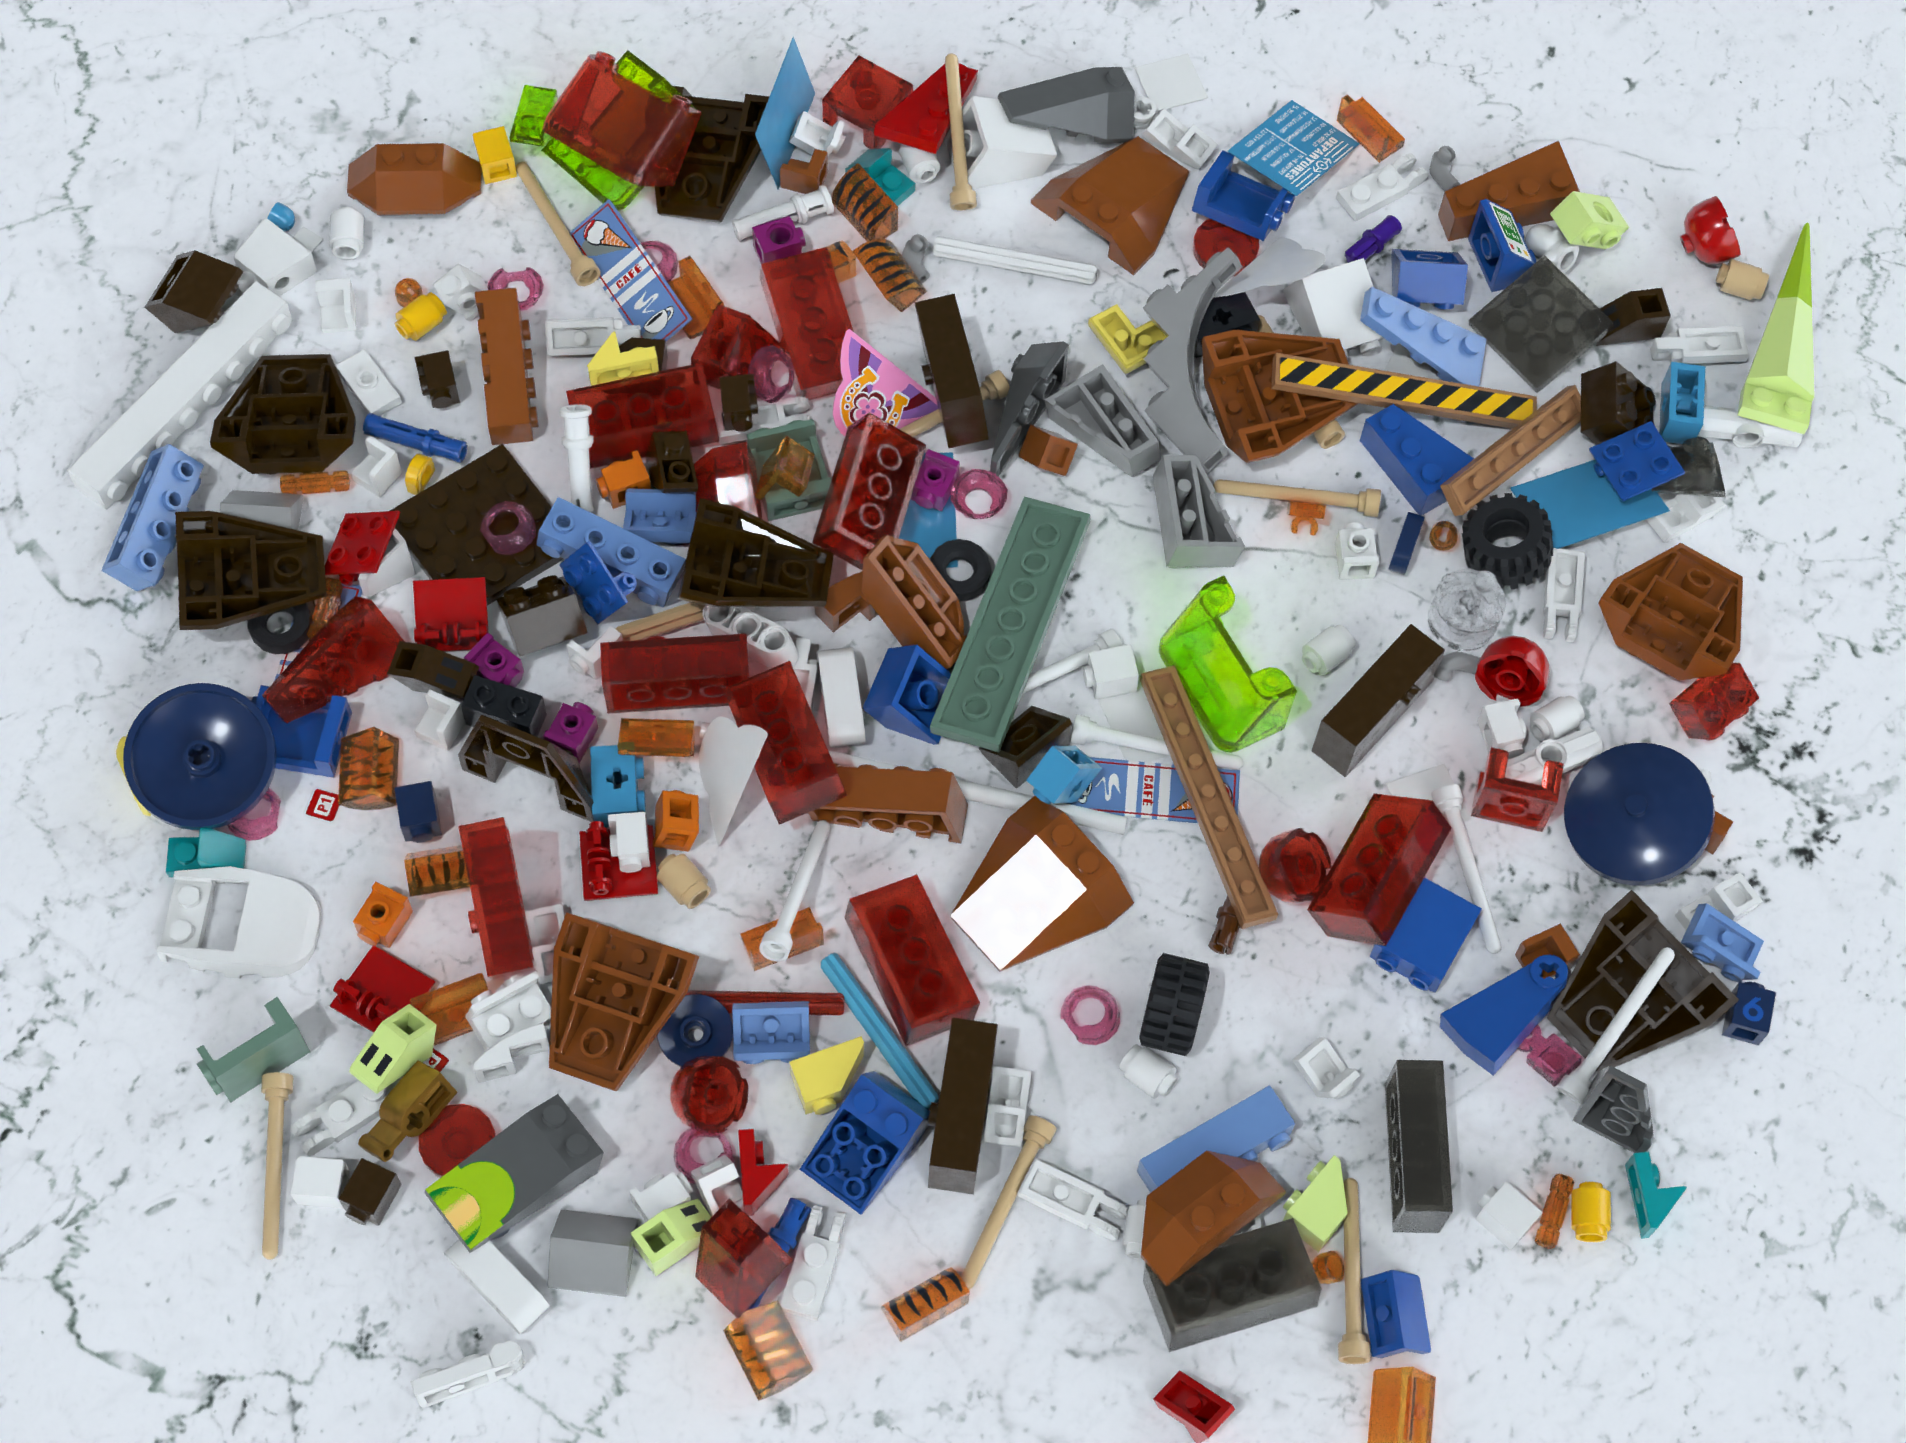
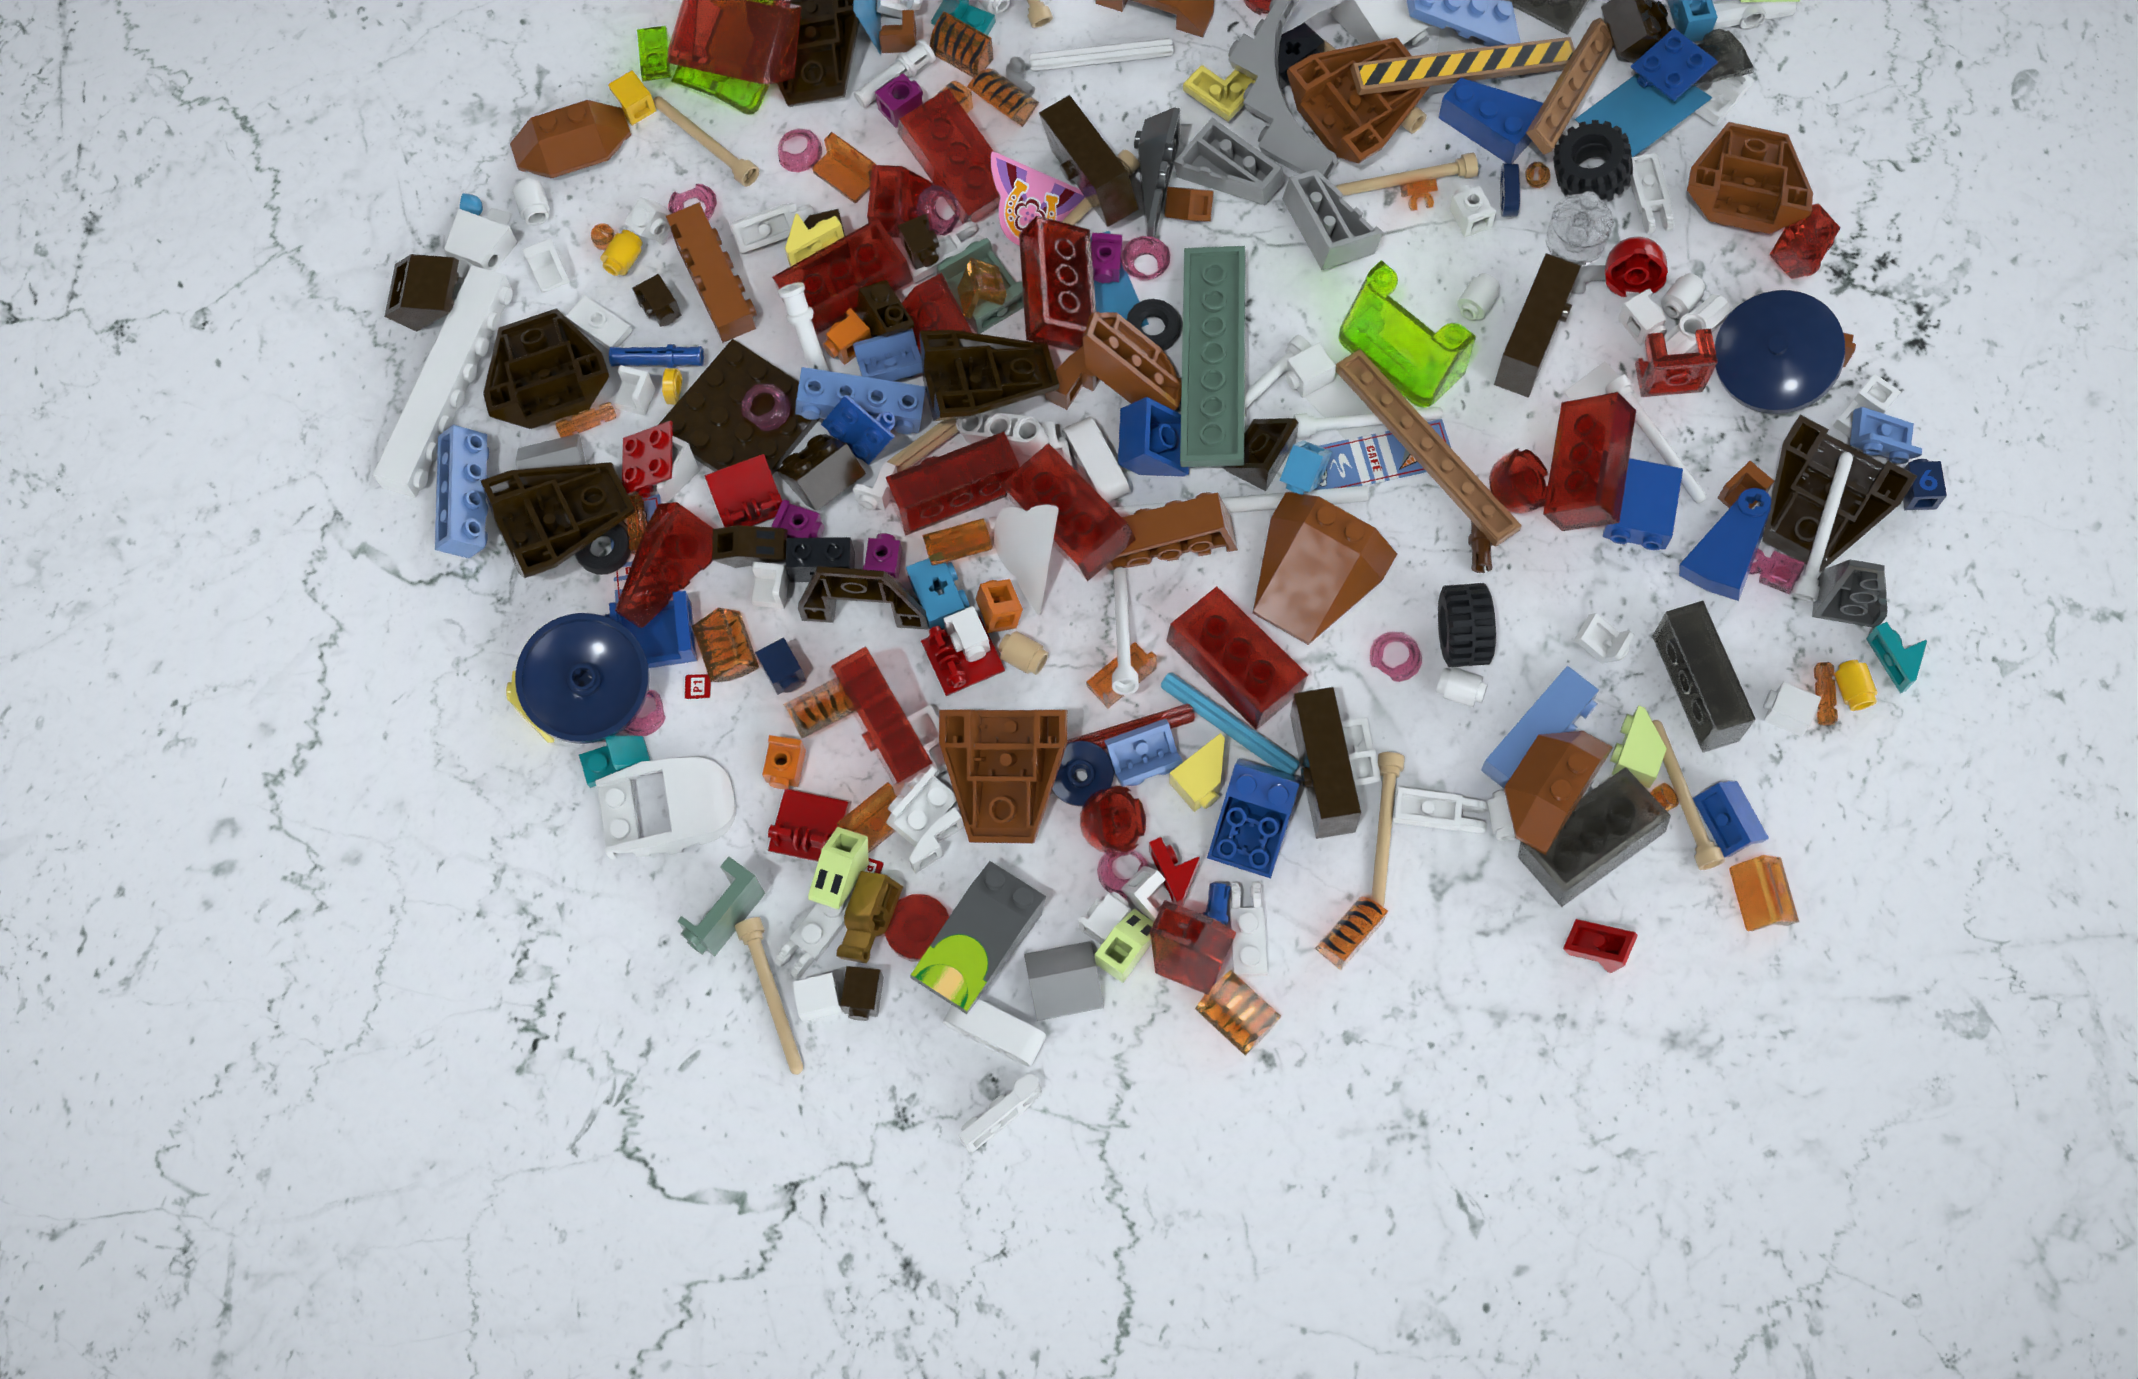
camera: 10 degrees left, 5 degrees up
(630, 274) = (785, 163): sticker -> none

